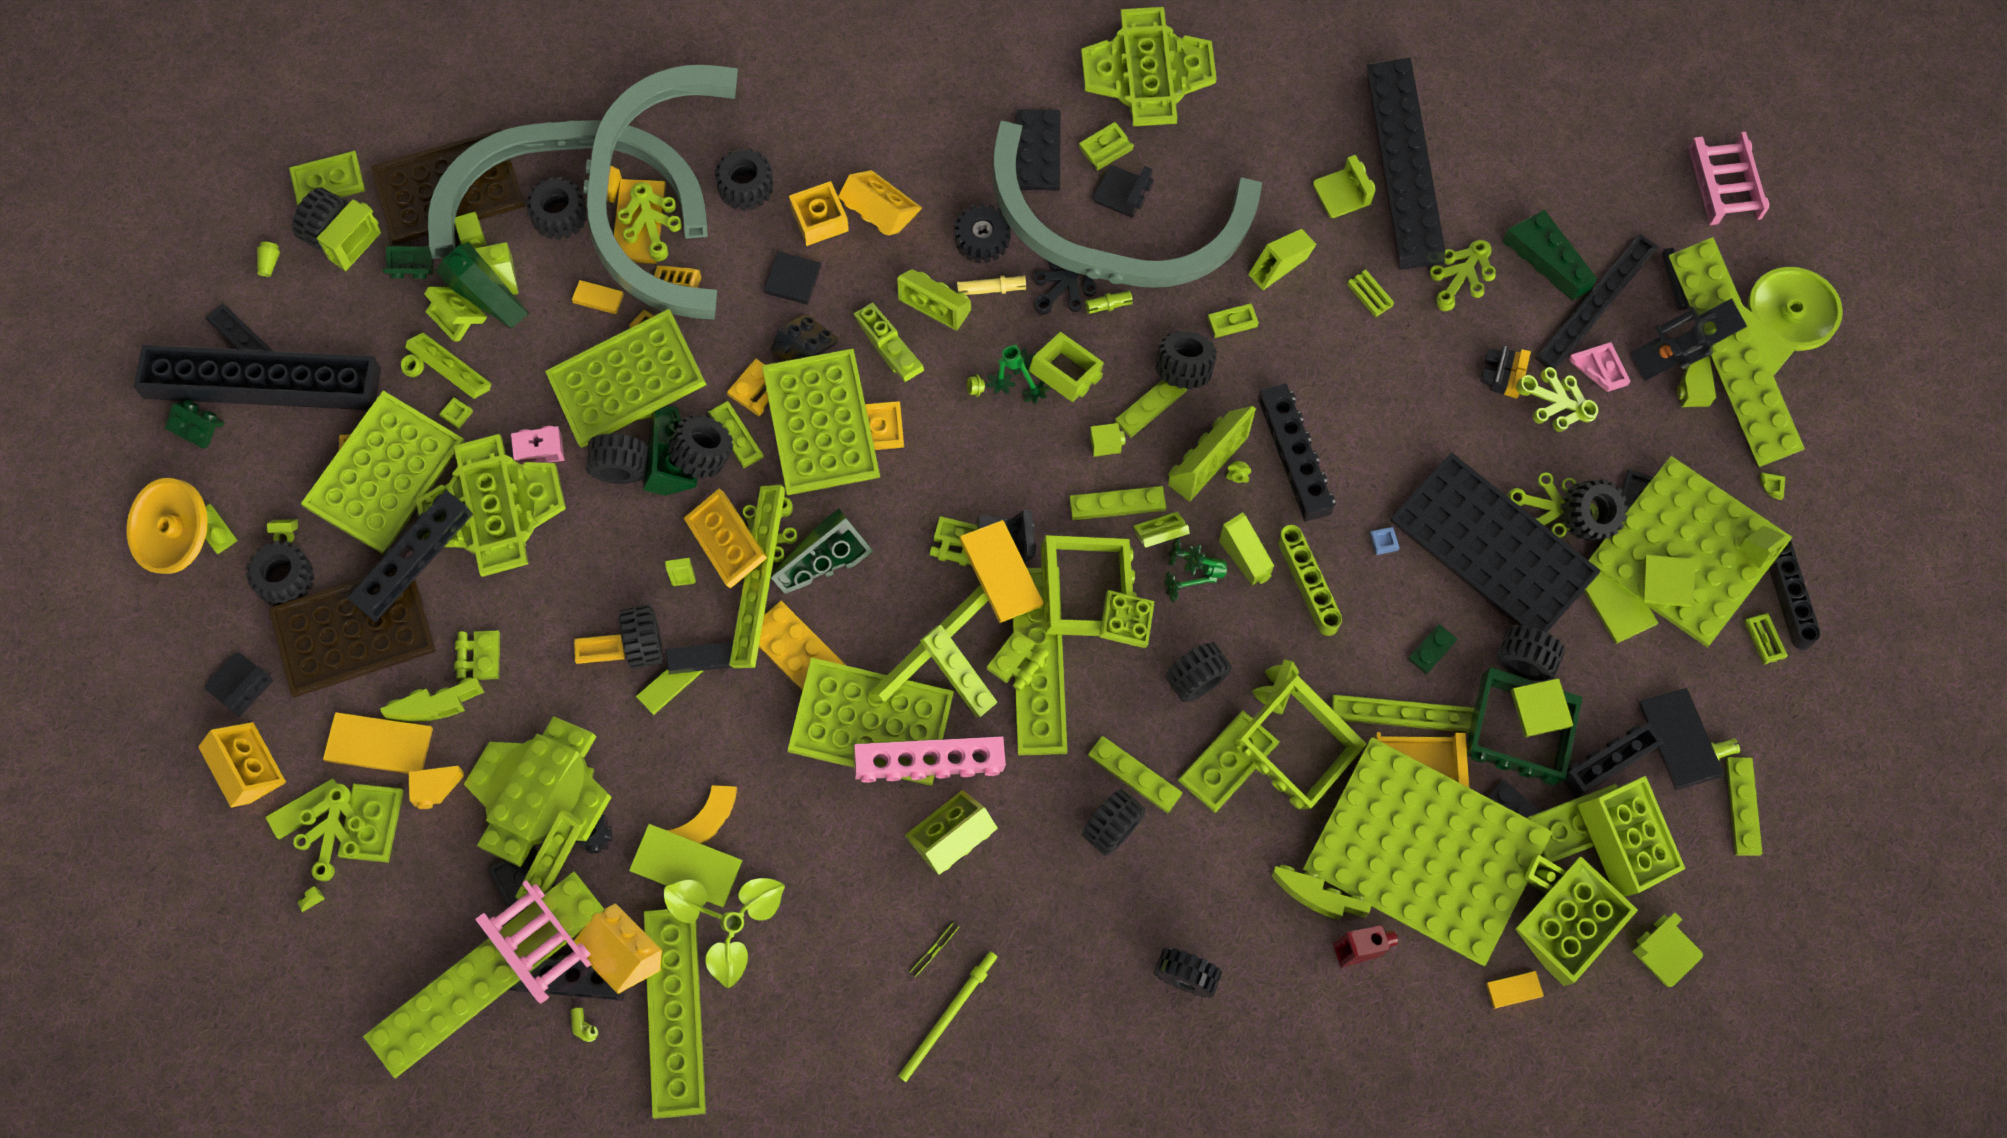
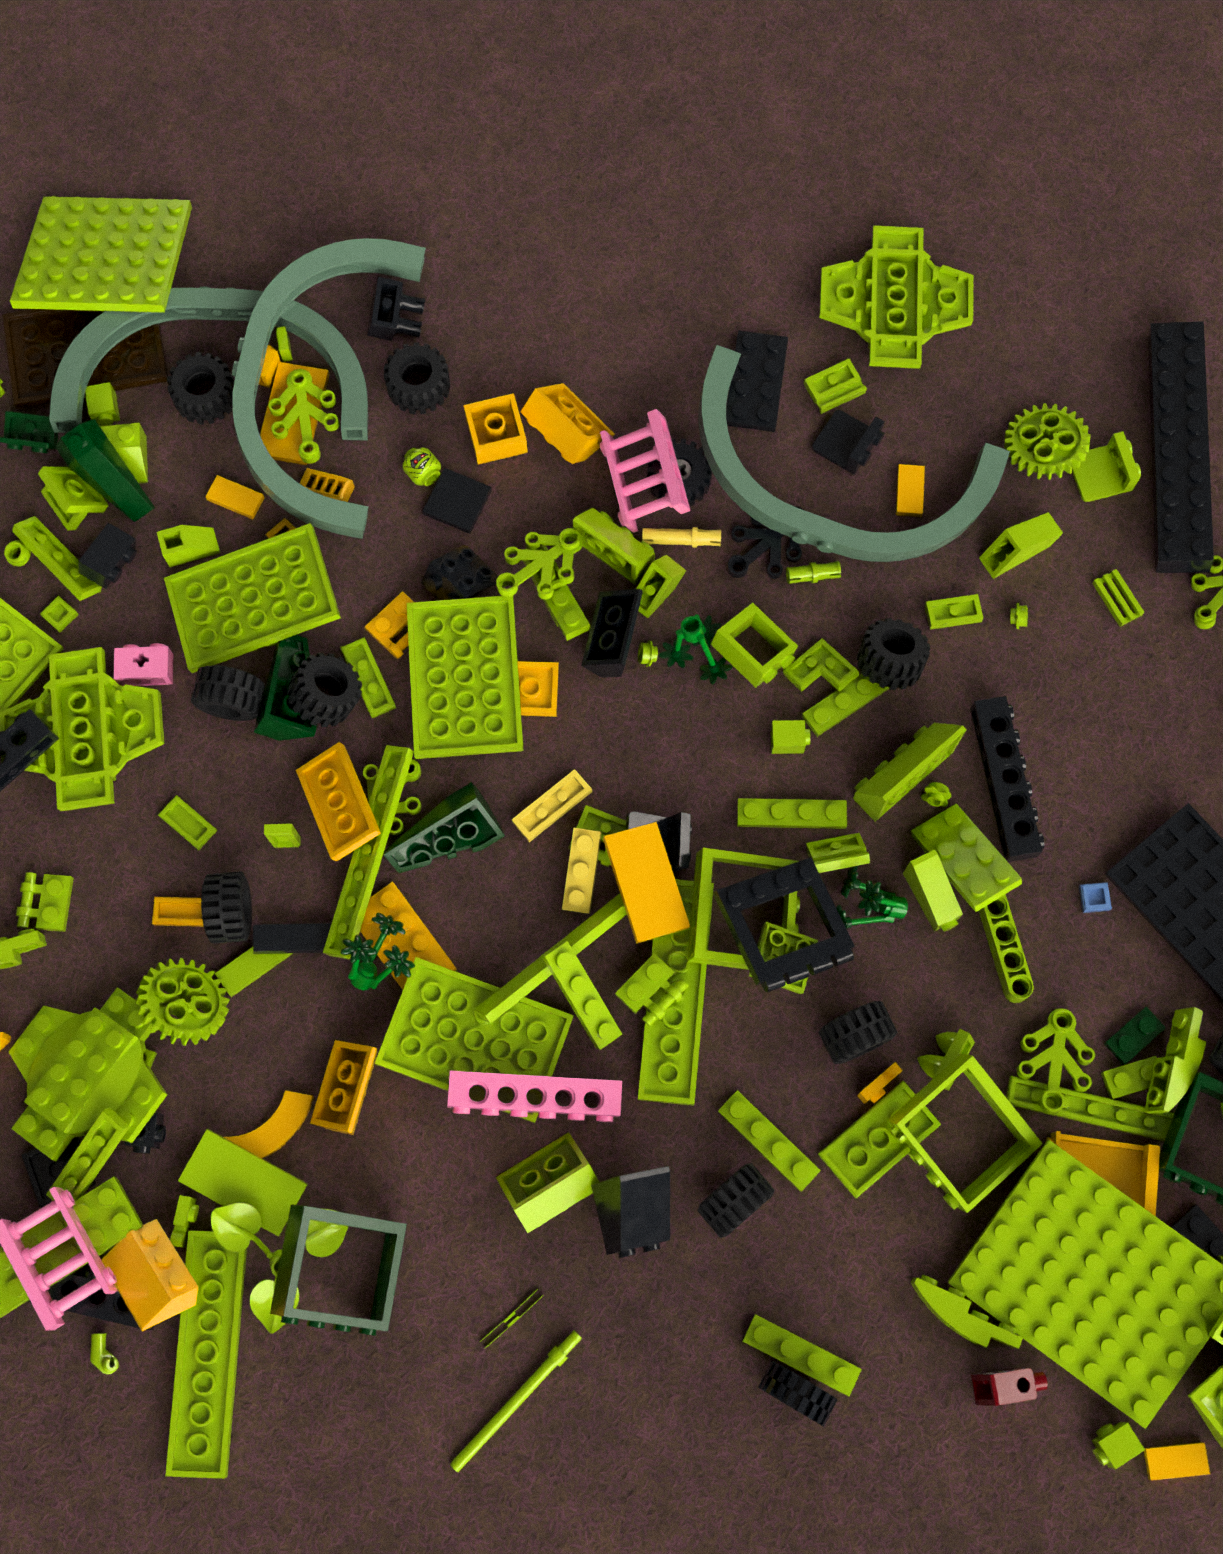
camera: 10 degrees right, 5 degrees up
(453, 104) = (102, 254): none -> lime plate
(493, 358) = (107, 556): none -> black brick
(562, 339) = (187, 544): none -> lime slope
(594, 574) = (187, 822): none -> lime tile
(613, 719) = (182, 1001): none -> lime gear
(623, 163) = (284, 344): none -> lime tile
(639, 898) = (185, 1214): none -> lime plate
(708, 124) = (385, 309): none -> black brick
(741, 915) = (291, 1264): none -> dark green window
(758, 252) = (421, 466): none -> lime head
(764, 773) = (344, 1087): none -> yellow slope
(768, 680) = (365, 974): none -> dark green plant
(874, 316) = (541, 560): none -> lime plant
(910, 521) = (551, 805): none -> light yellow plate
(943, 370) = (611, 632): none -> black slope
(943, 571) = (581, 870): none -> light yellow plate
(973, 233) = (669, 474): none -> bright pink fence
(975, 328) = (659, 583): none -> lime slope
(1028, 841) = (634, 1211): none -> black slope
(1126, 374) = (824, 662): none -> lime tile
(1135, 621) = (798, 963): none -> black hinge
(1159, 936) = (802, 1355): none -> lime plate
(1182, 225) = (910, 490): none -> yellow tile
(1219, 719) = (875, 1090): none -> yellow plate
(1272, 518) = (967, 857): none -> lime plate
(1289, 317) = (1019, 615): none -> lime plate
(1293, 171) = (1047, 441): none -> lime gear
(1370, 673) = (1057, 1056): none -> lime plant
(1436, 683) = (1129, 1078): none -> lime plate
(1462, 981) = (1116, 1445): none -> lime brick
(1472, 668) = (1177, 1070): none -> lime slope

